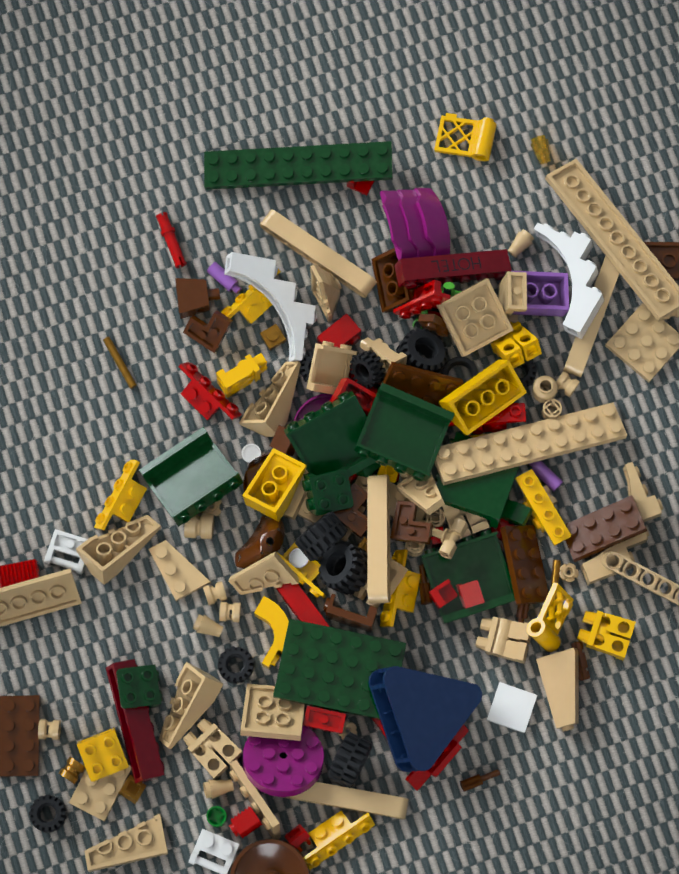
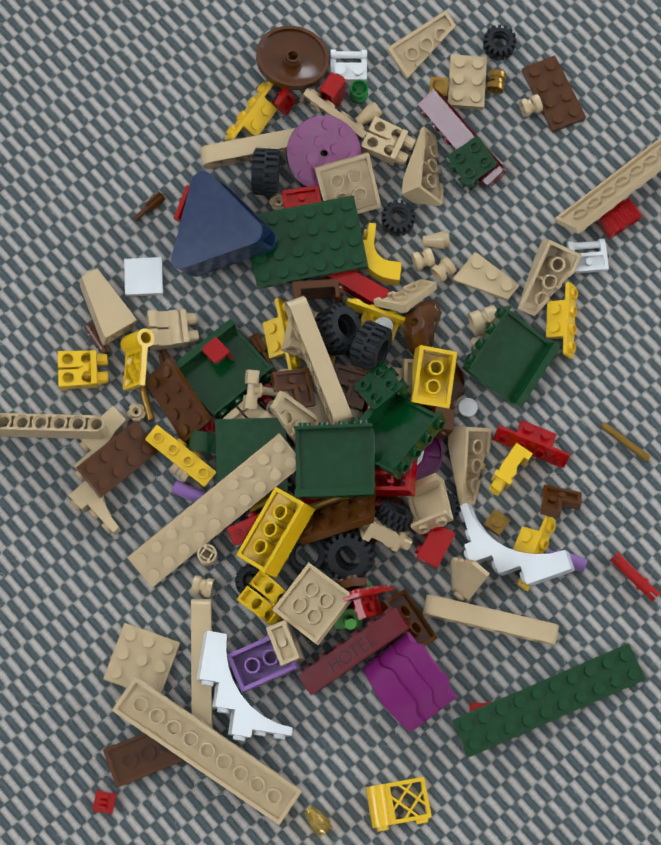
camera: 155 degrees right, 0 degrees up
(102, 754) = (478, 102): yellow bracket -> none
(194, 296) = (587, 529): reddish brown torso -> none
(443, 594) = (243, 343): red panel -> none
(521, 242) = (299, 713): tan cone -> none
(544, 388) = (216, 565): tan head -> none

